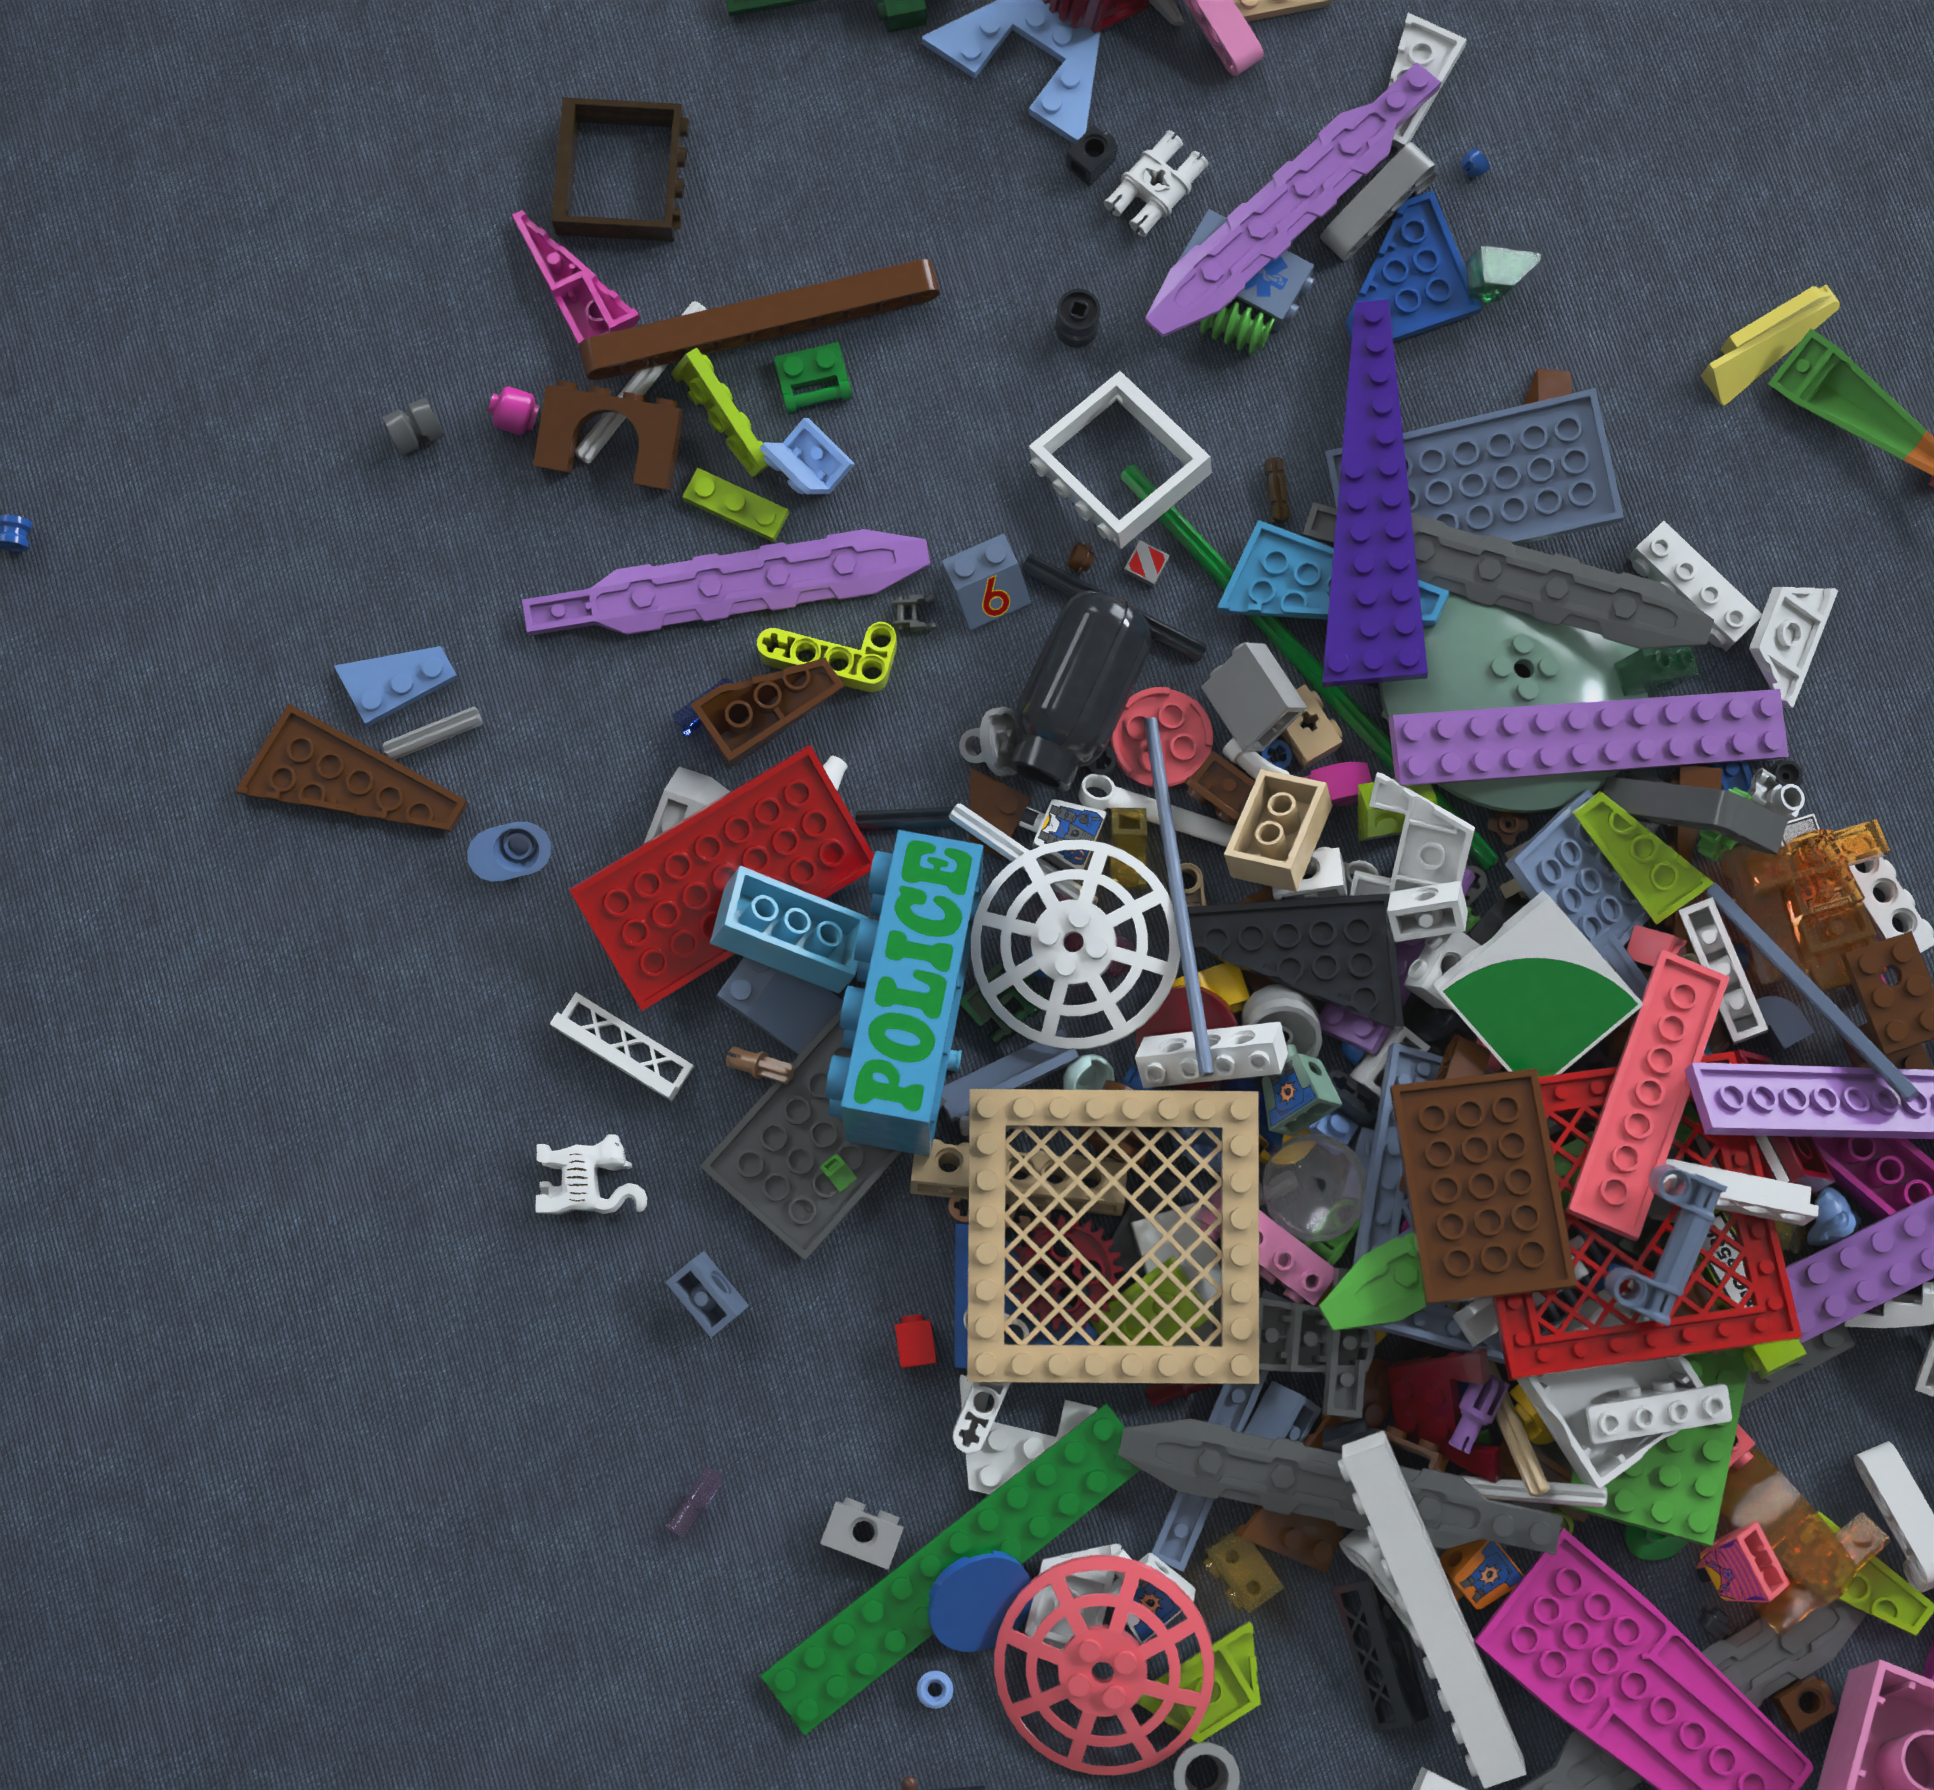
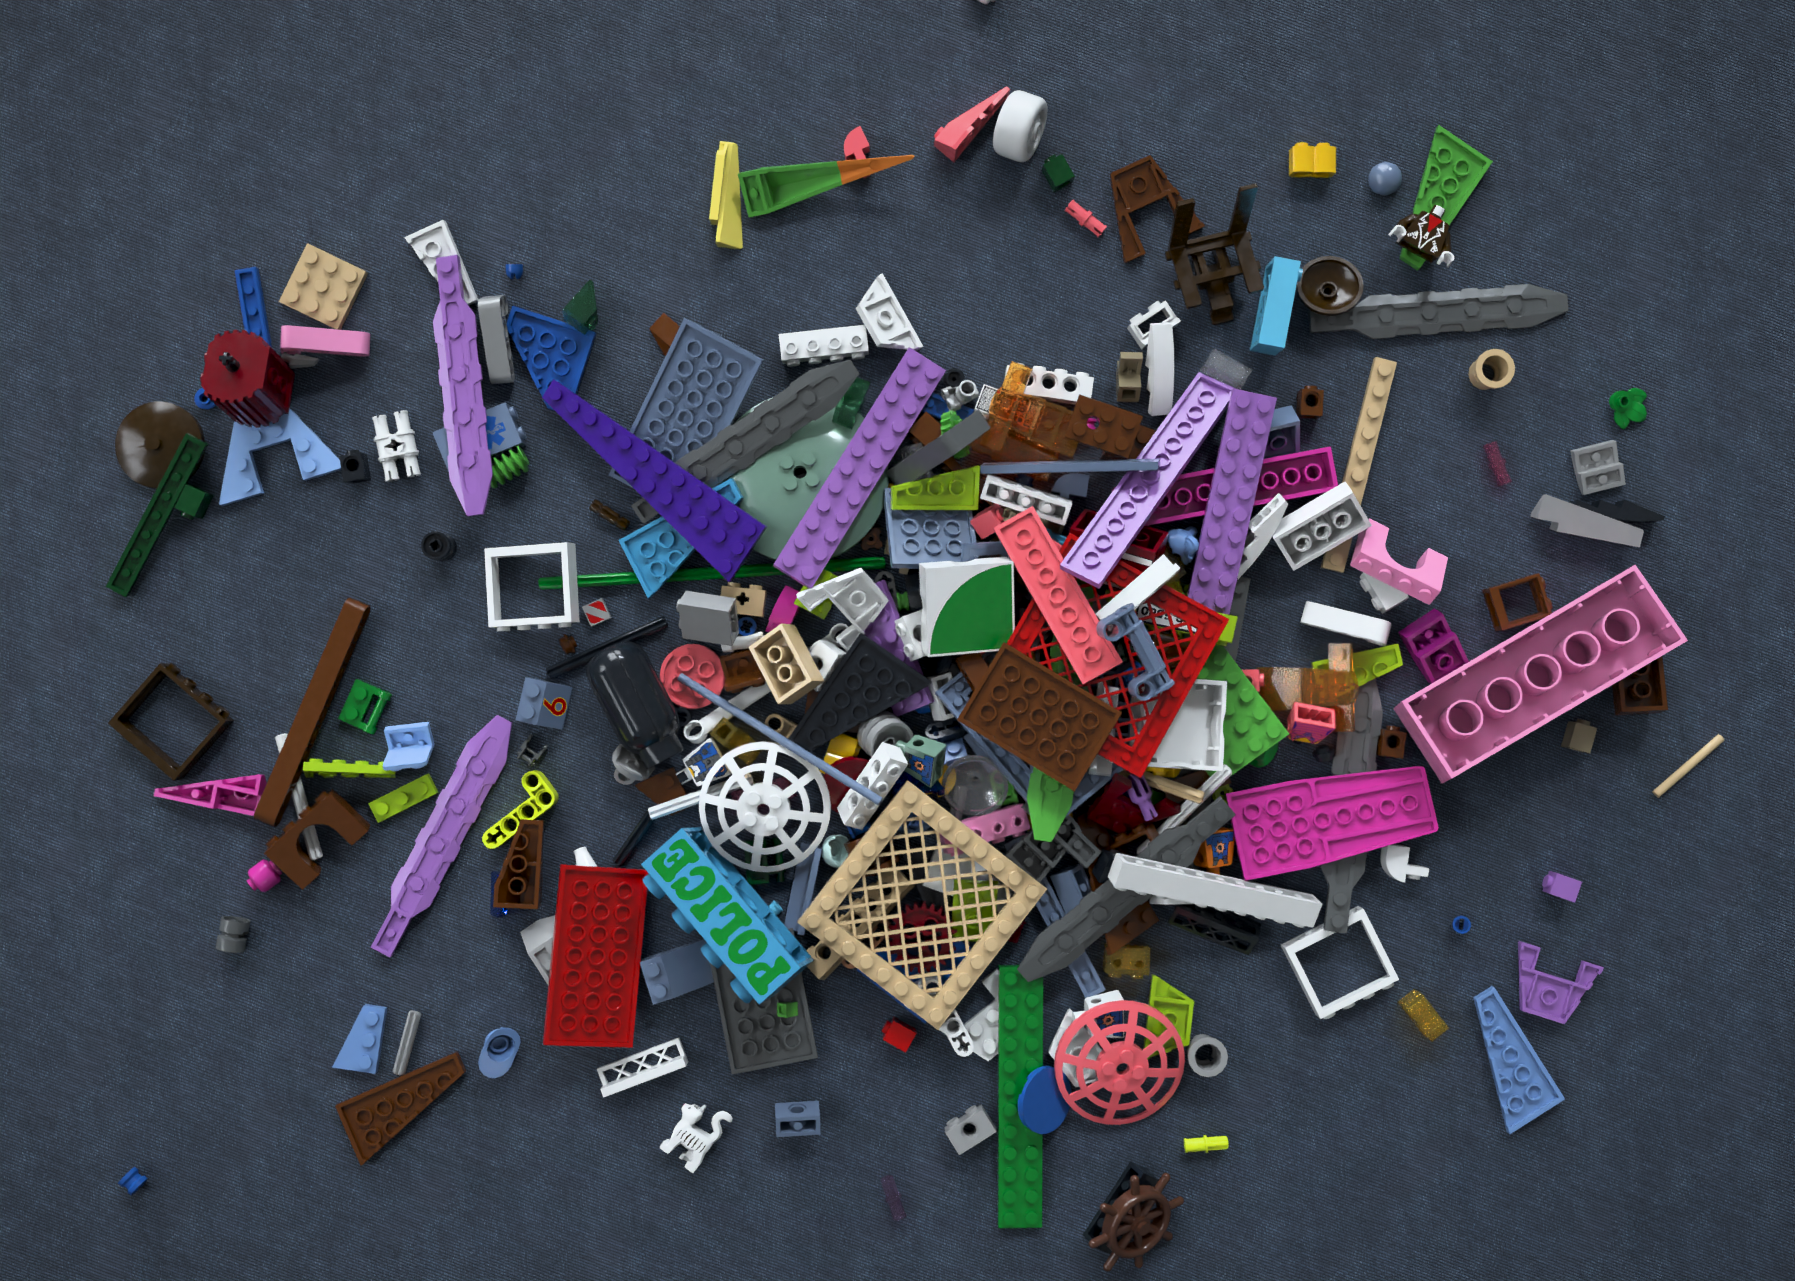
camera: 50 degrees left, 10 degrees up
(760, 1065) = (704, 1007): medium nougat axle -> none
(787, 929) = (646, 948): medium azure brick -> none
(934, 1701) = (1071, 1154): light blue plate -> none
(1427, 911) = (884, 623): white brick -> none
(1657, 1410) = (1207, 713): white bracket -> none

